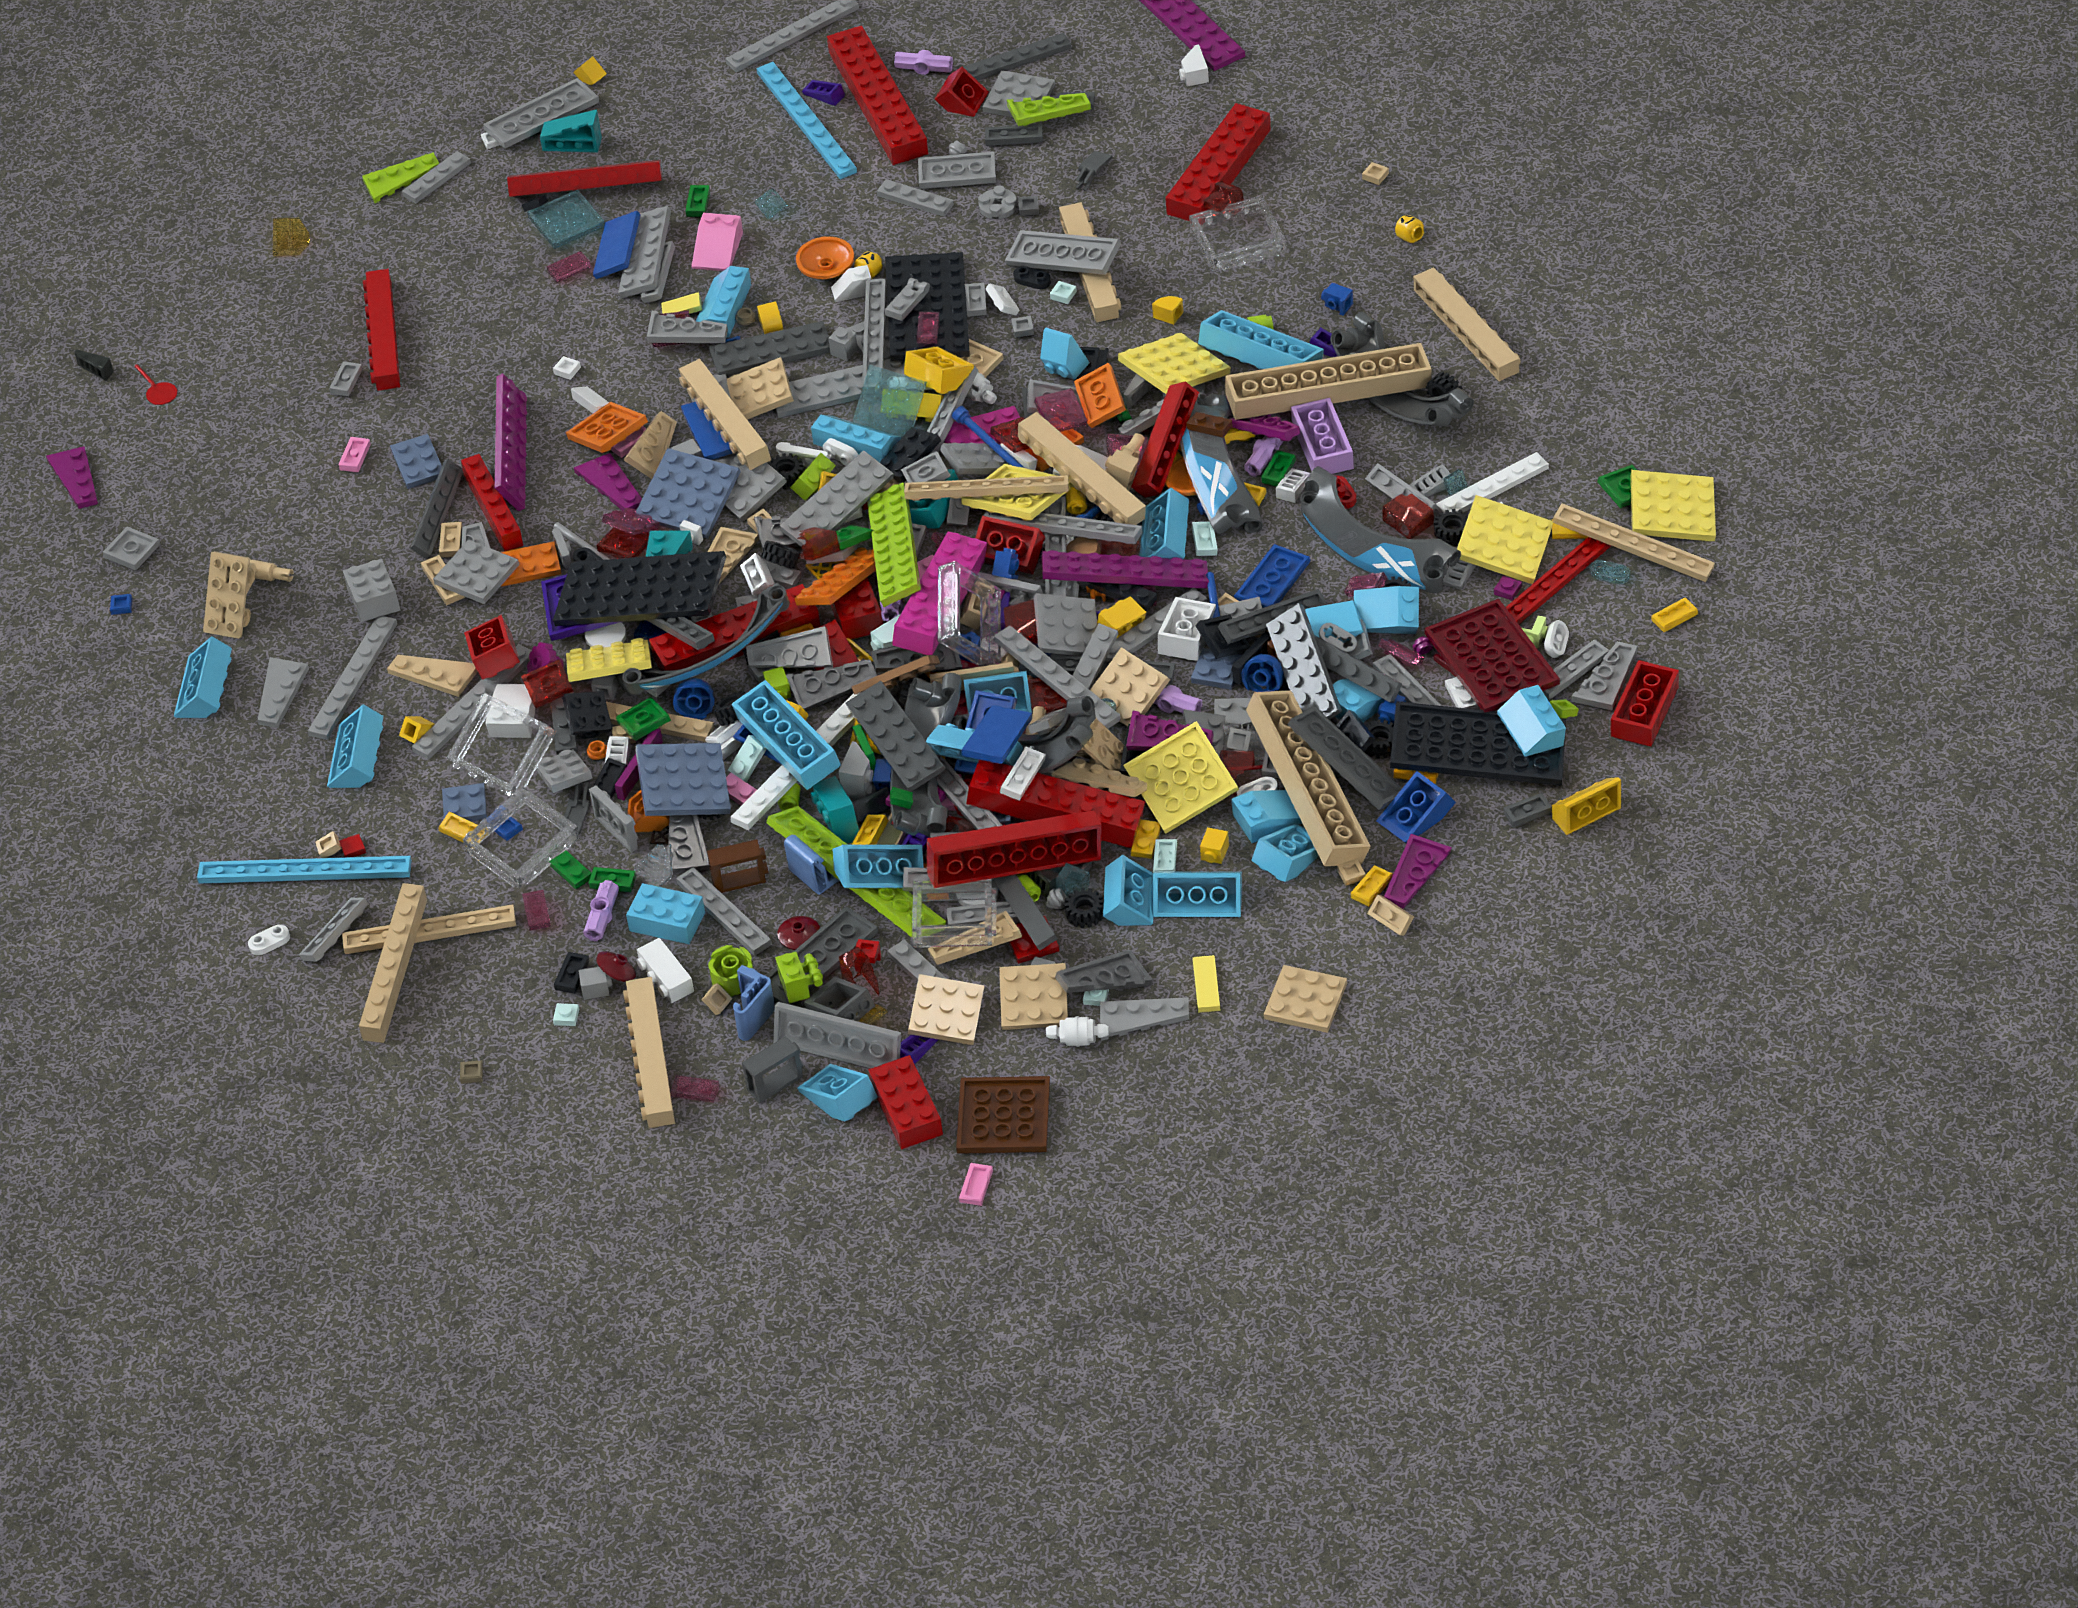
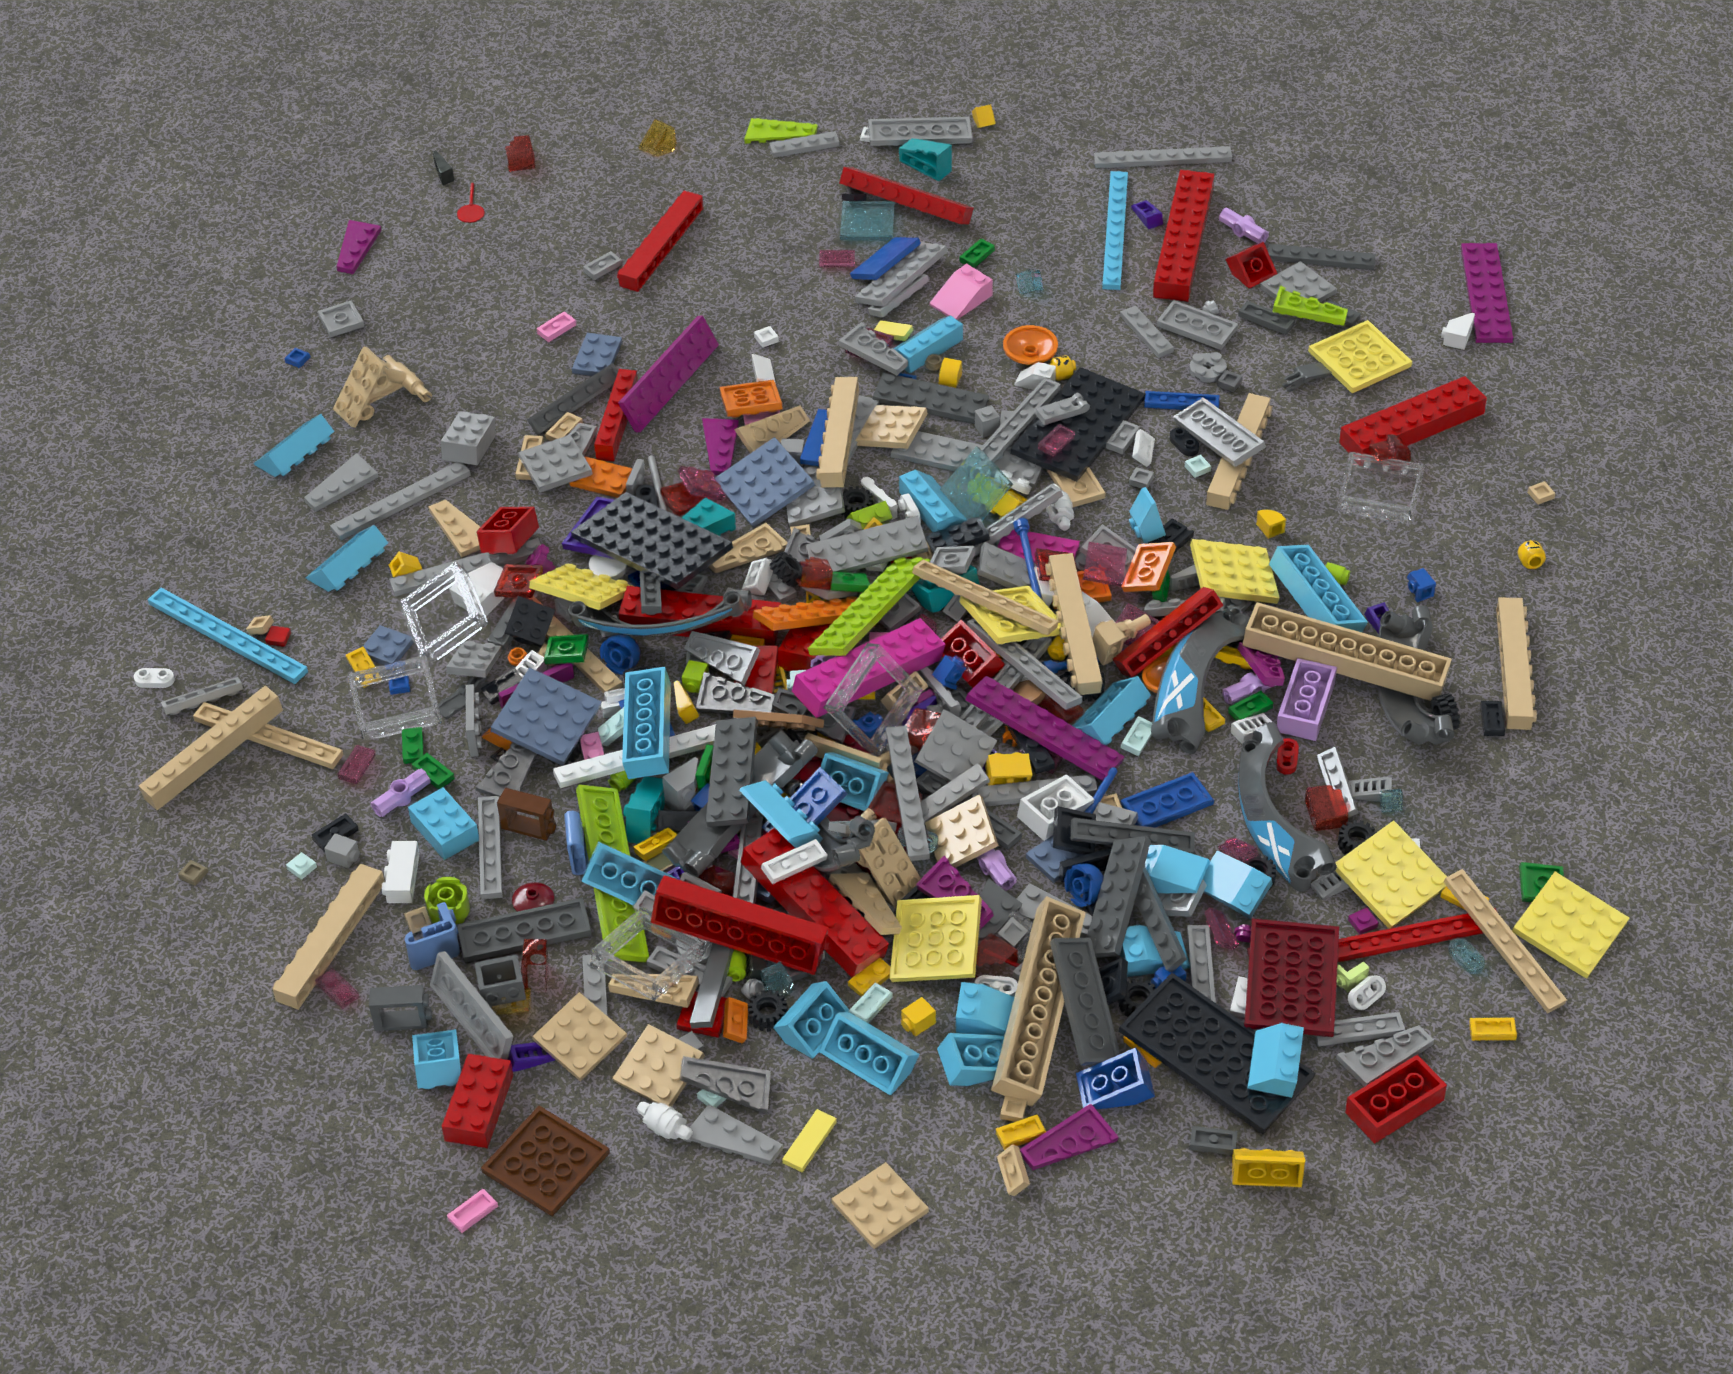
camera: 30 degrees right, 0 degrees up
(164, 312) = (520, 154): none -> clear red piece
(616, 966) = (367, 847): dark red dish -> none
(656, 866) = (468, 776): clear hinge -> none
(696, 532) = (741, 516): white plate -> none
(793, 975) = (484, 936): lime brick -> none
(801, 497) = (843, 528): none -> light grey plate
(871, 949) = (560, 947): red panel -> none
(901, 797) = (693, 827): green tile -> none
(938, 368) = (1031, 477): yellow slope -> none
(993, 246) = (1176, 401): none -> blue tile
(996, 734) = (799, 815): blue tile -> none
(1065, 928) = (735, 1020): none -> orange plate
(1125, 130) = (1360, 356): none -> light yellow plate
(1209, 424) = (1210, 638): reddish brown plate -> none
(1340, 633) = (1162, 889): light grey beam -> none
(1483, 377) = (1492, 718): none -> black plate
(1495, 483) = (1428, 819): white plate -> none
(1564, 708) = (1321, 1061): lime plate -> none

